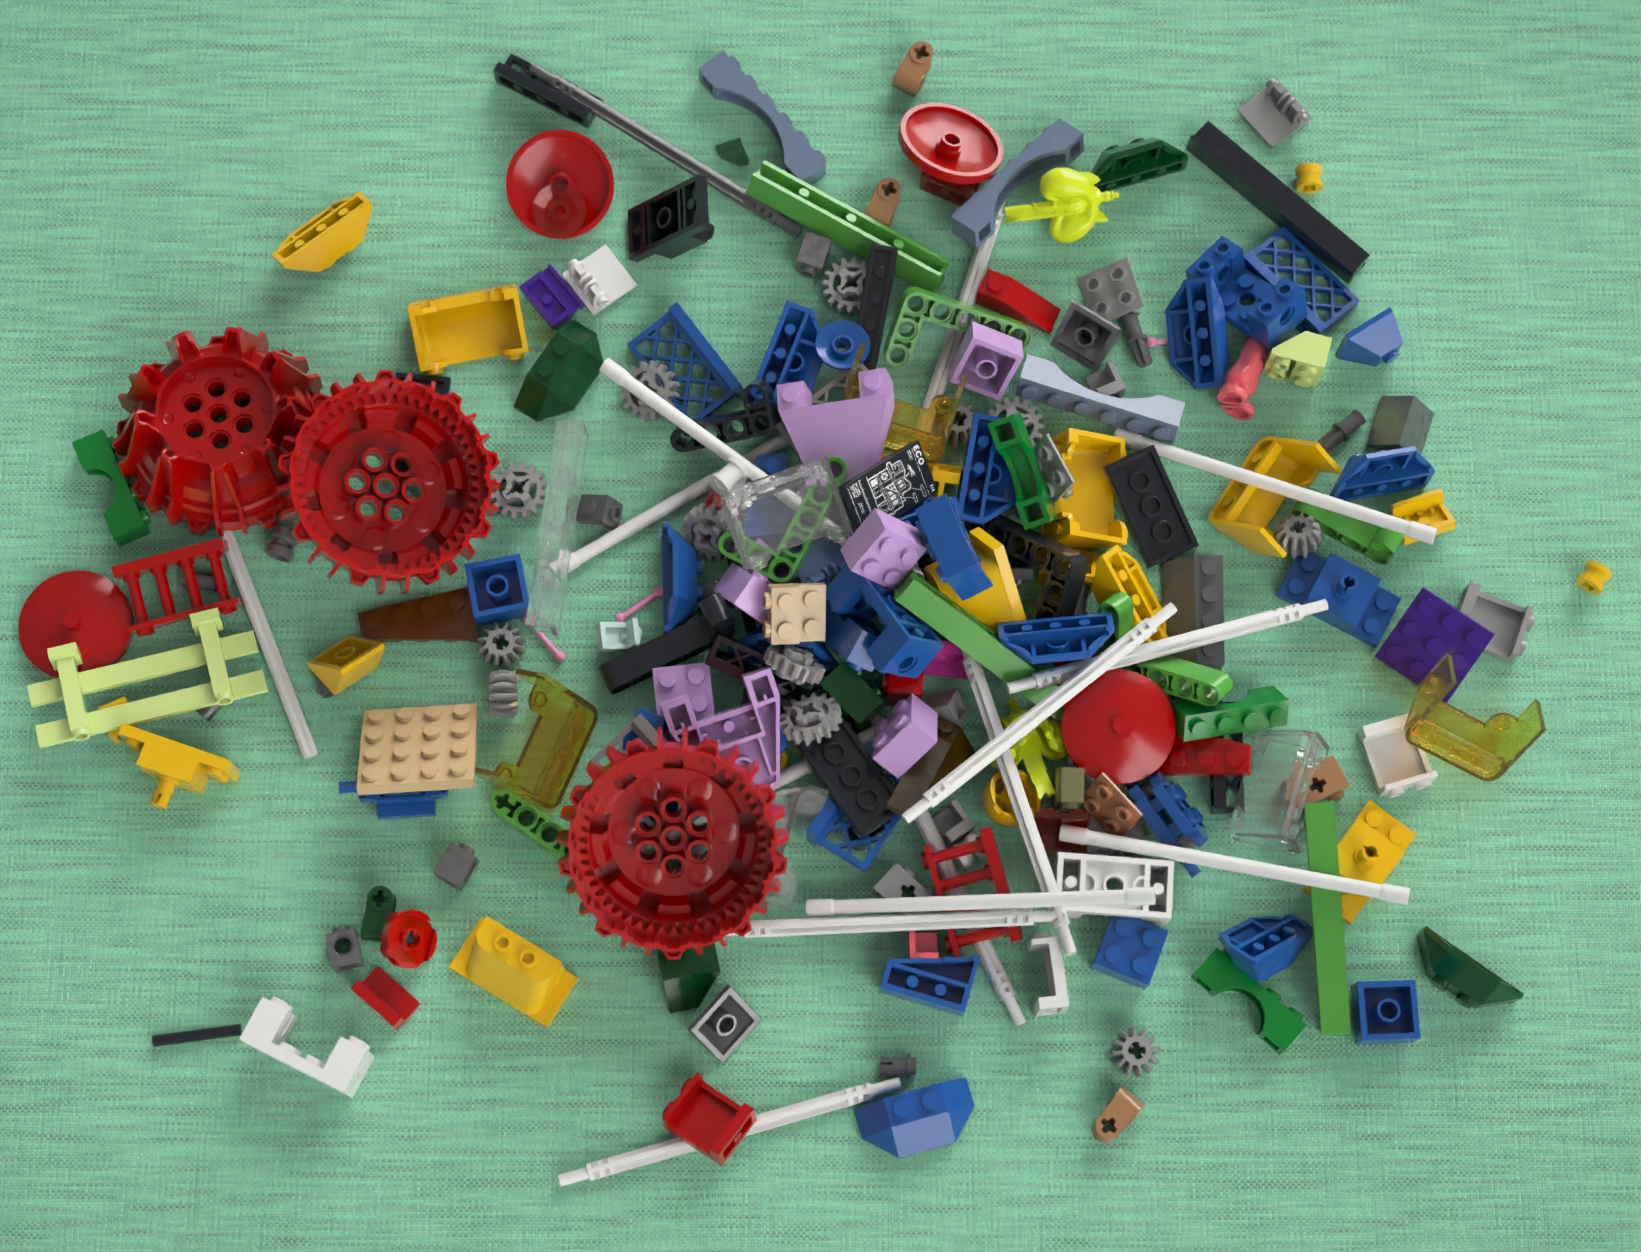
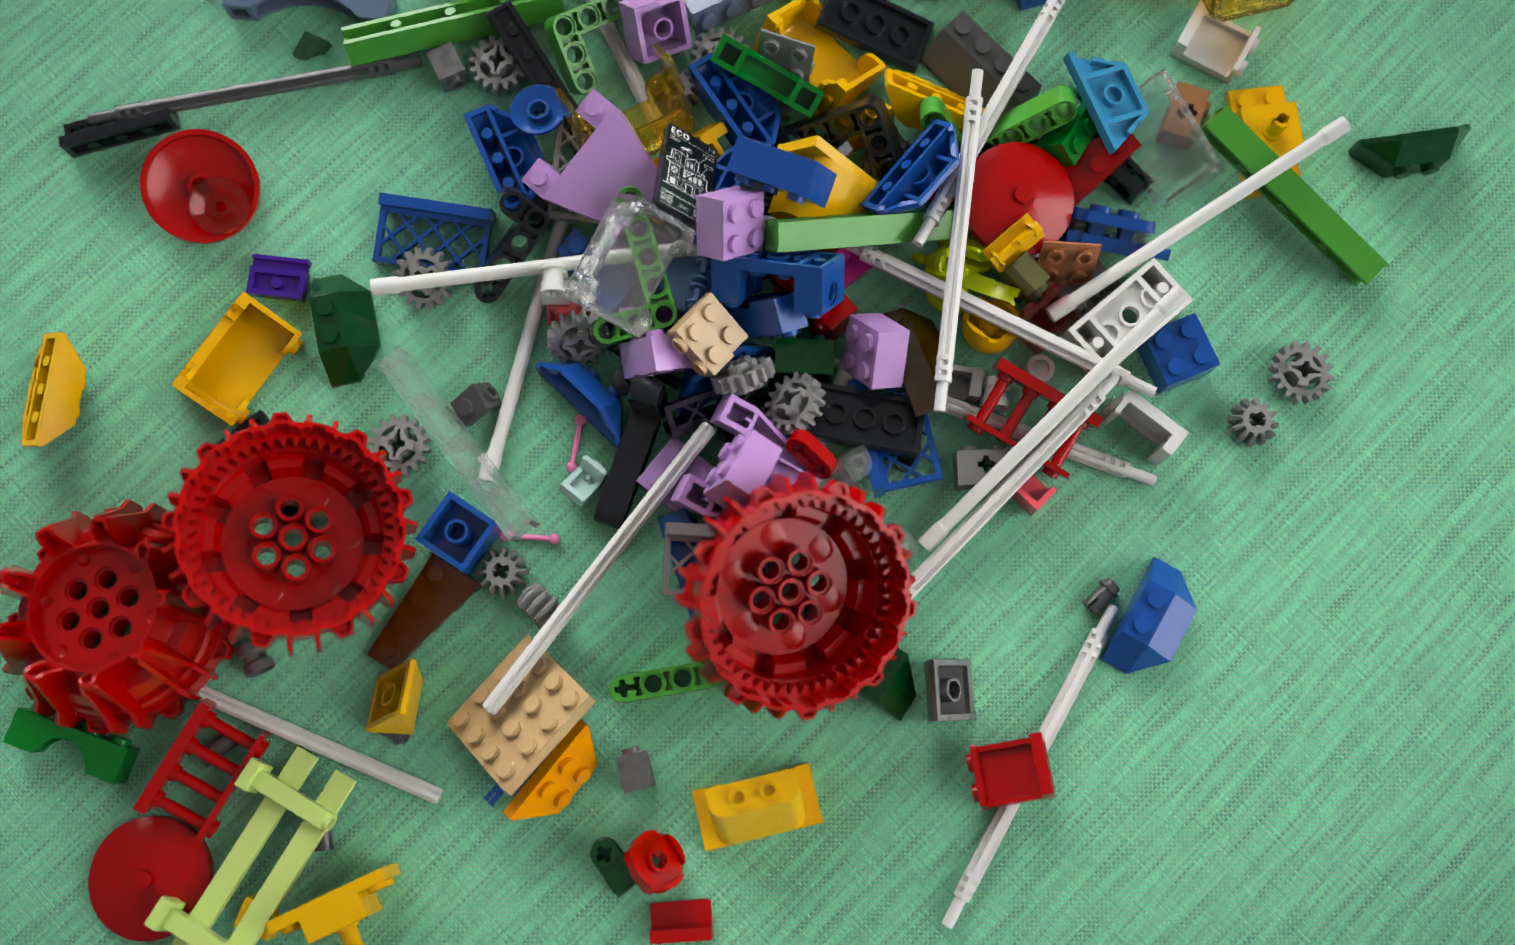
camera: 40 degrees left, 5 degrees up
(347, 961) = (627, 917): flat silver brick -> none
(400, 817) = (557, 777): none -> light orange wing
(552, 747) = (618, 615): clear yellow windscreen -> none
(568, 702) = (598, 569): none -> white axle
(599, 279) = (302, 232): white hinge -> none
(670, 221) = (315, 134): black brick -> none
(727, 724) = (742, 468): none -> lavender brick
(786, 763) = (811, 454): none -> red beam
(932, 982) = (1070, 509): blue wedge -> none
(949, 706) = (877, 300): light grey panel -> none
(1019, 867) = (1041, 367): none -> white tile
(1079, 753) = (1013, 242): none -> yellow hinge
(1119, 1112) = (1286, 475): medium nougat piece -> none
(1201, 1042) = (1310, 365): none -> light grey gear
(1256, 716) = (1108, 96): none -> dark azure wing
(1266, 944) = (1265, 257): blue wedge -> none
(1277, 1023) = (1325, 307): green arch -> none
(1385, 1012) = (1394, 225): blue brick -> none

